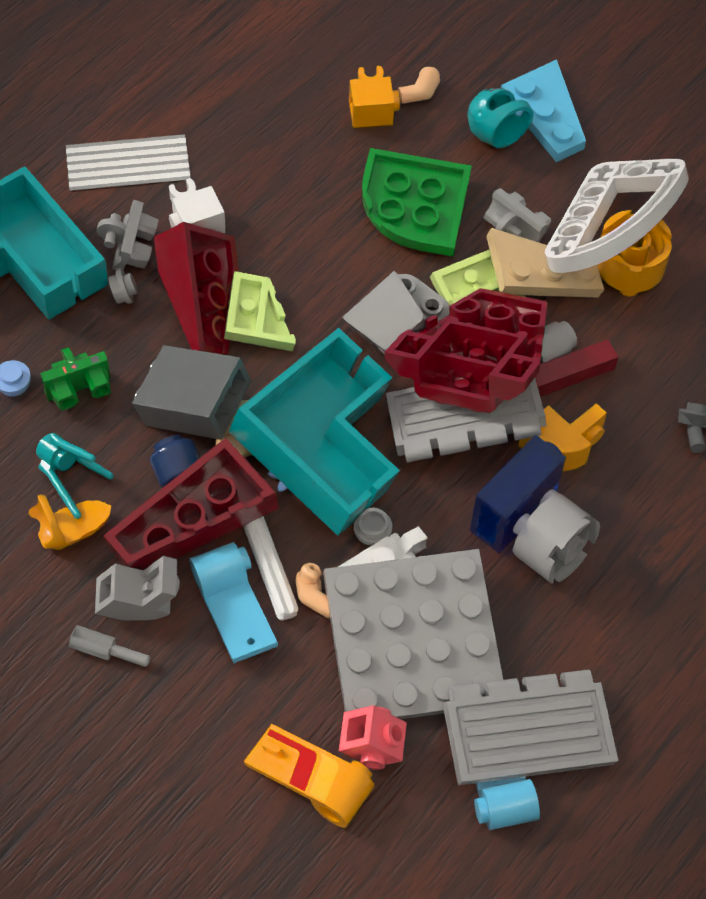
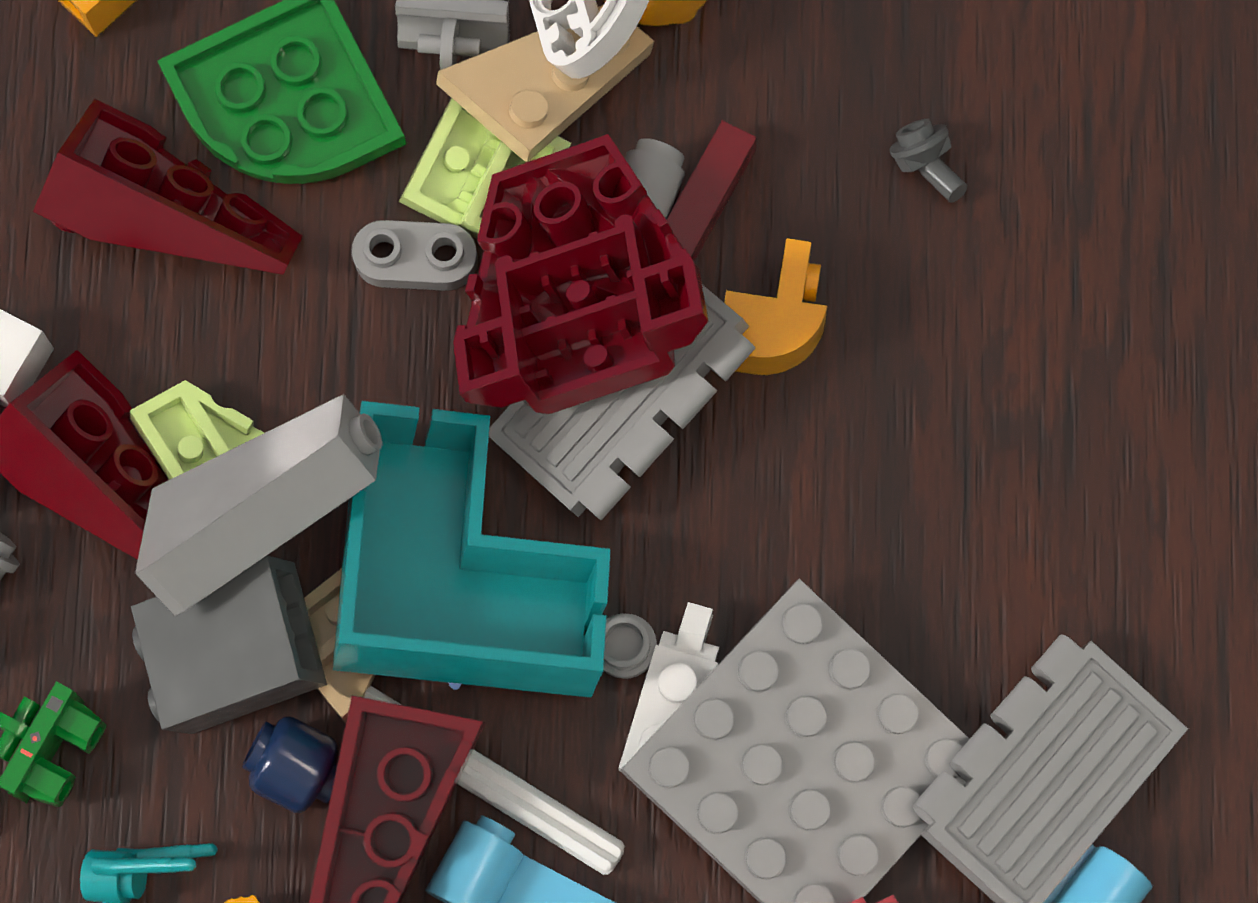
camera: 30 degrees left, 15 degrees up
(253, 329) = (253, 500): none -> light grey slope
(310, 589) = (615, 802): light nougat arm -> none
(314, 186) = (129, 191): none -> dark red wedge
(385, 314) = (404, 318): light grey torso -> none
(516, 491) = (787, 455): clear blue brick -> none
(554, 537) = (882, 482): light grey brick -> none

